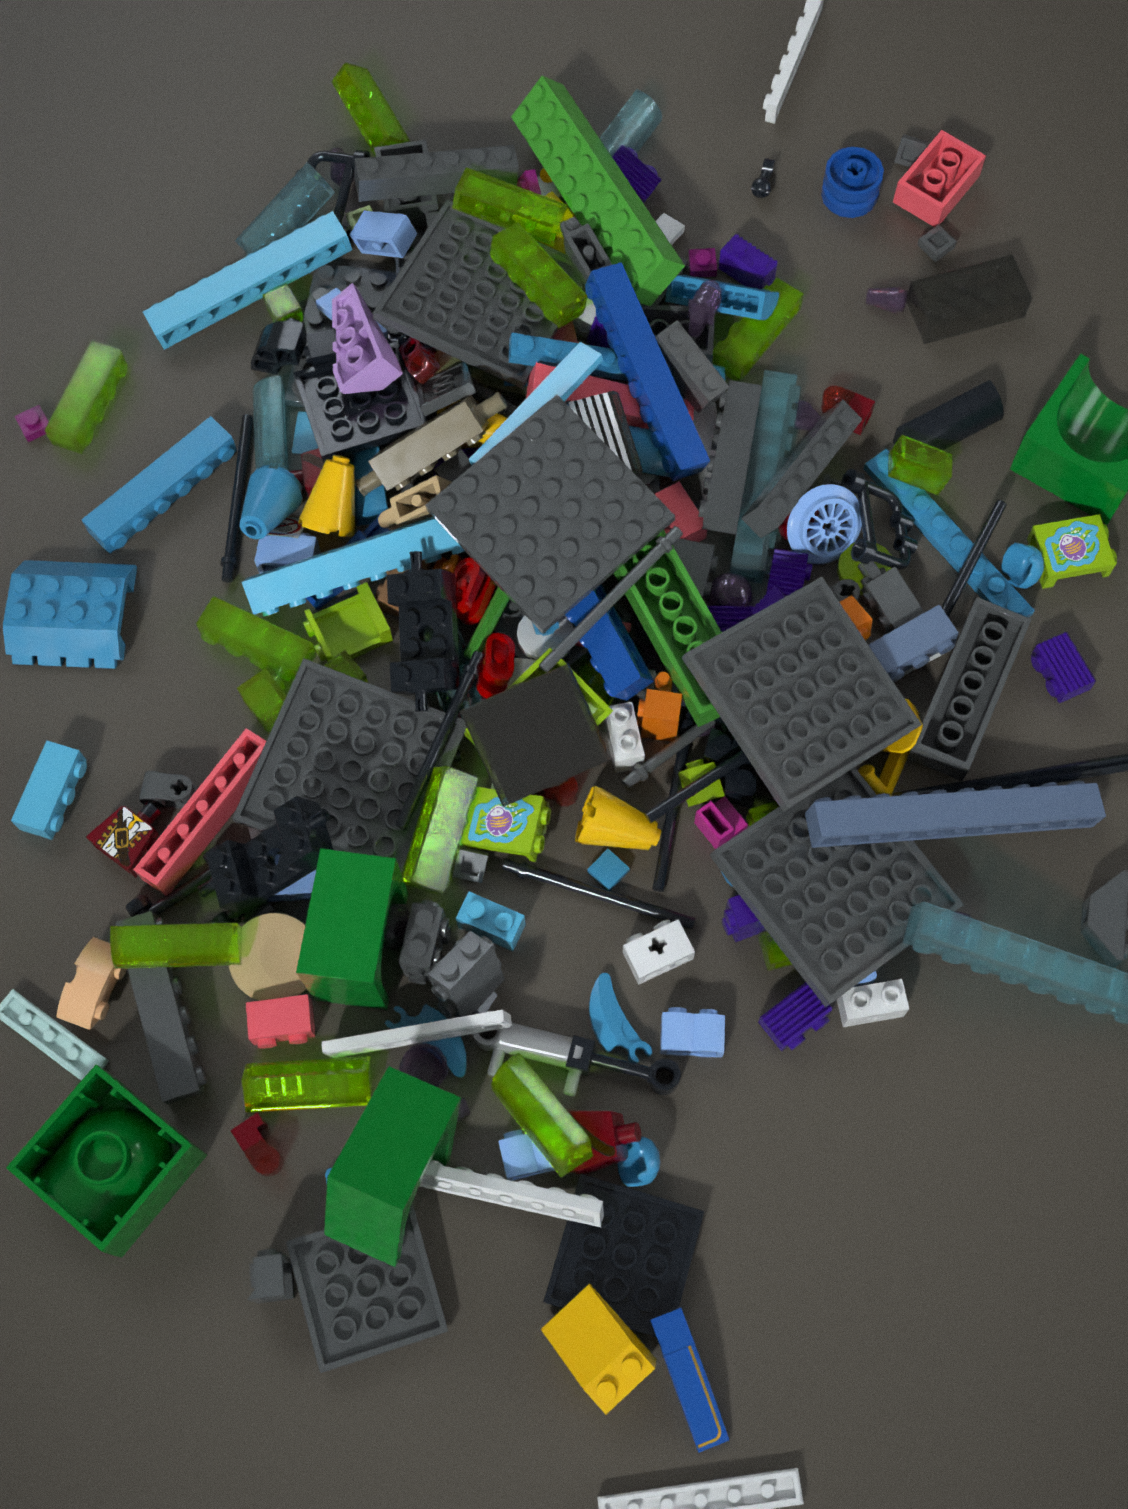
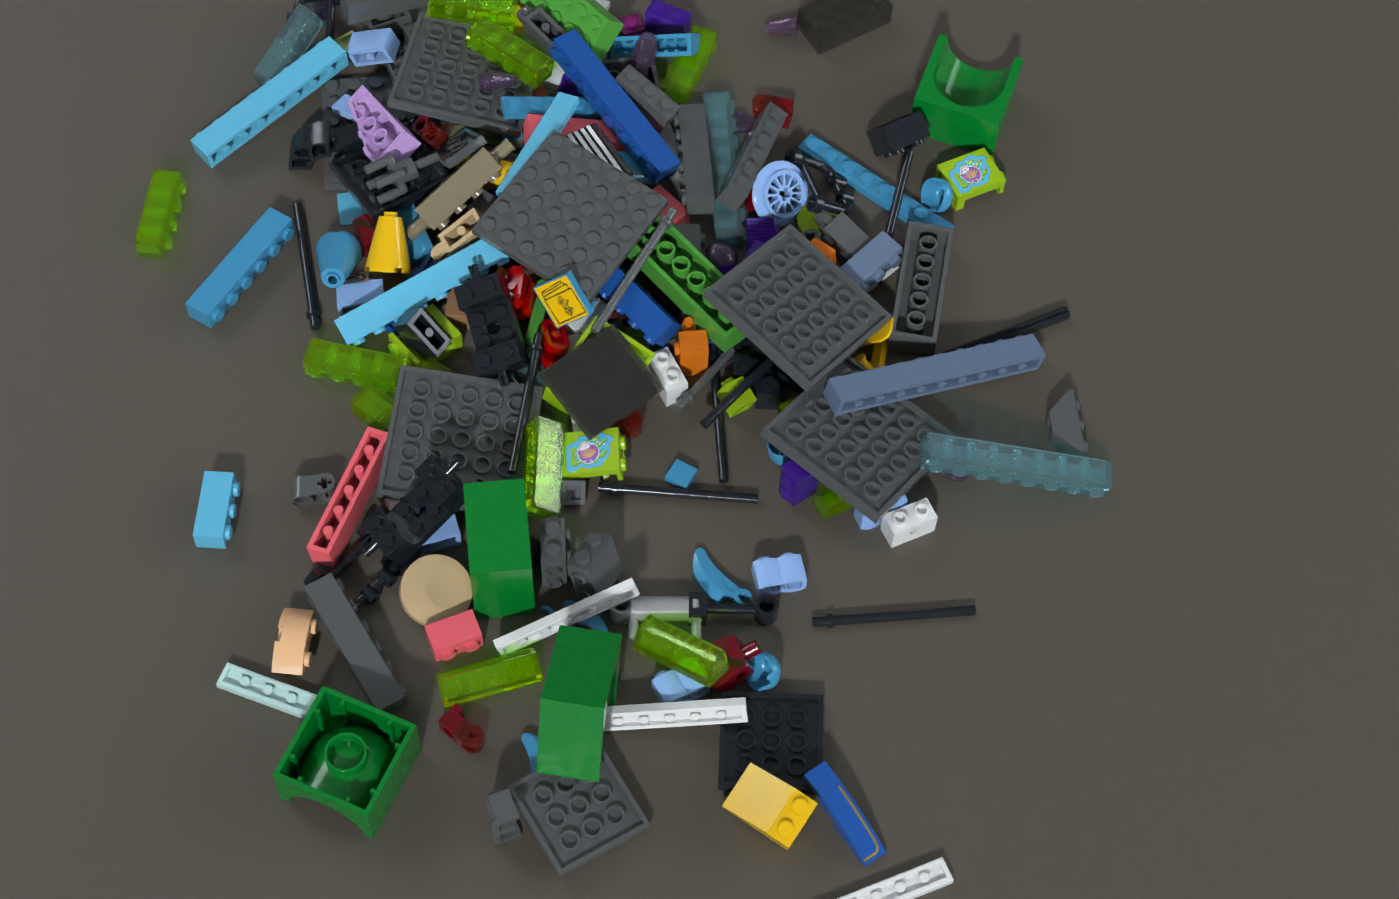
camera: 20 degrees left, 10 degrees down
(32, 423) = (118, 242): magenta plate -> none
(67, 613) = (192, 377): dark azure slope -> none
(126, 836) = (289, 531): torso -> none
(176, 945) = (360, 590): clear neon green brick -> none
(270, 423) = (316, 204): clear light blue brick -> none
(282, 304) = (302, 114): clear neon green brick -> none
(341, 620) = (421, 333): none -> black brick
(364, 408) = (397, 174): none -> dark grey plant
(491, 920) = (602, 522): medium azure brick -> none
(510, 309) = (495, 80): none -> clear purple cone
(515, 618) = (563, 299): none -> yellow tile
(614, 823) = (677, 437): yellow cone -> none
(650, 964) = (725, 525): white brick -> none
(719, 822) = (753, 420): dark pink piece -> none
(794, 1017) = (853, 545): dark purple brick -> none
(834, 1124) = (830, 620): none -> black bar
(920, 465) = (840, 138): clear neon green brick -> none
(956, 418) = (853, 106): black brick -> none
(994, 475) = (898, 134): none -> black brick
(1062, 668) = (986, 261): dark purple brick -> none

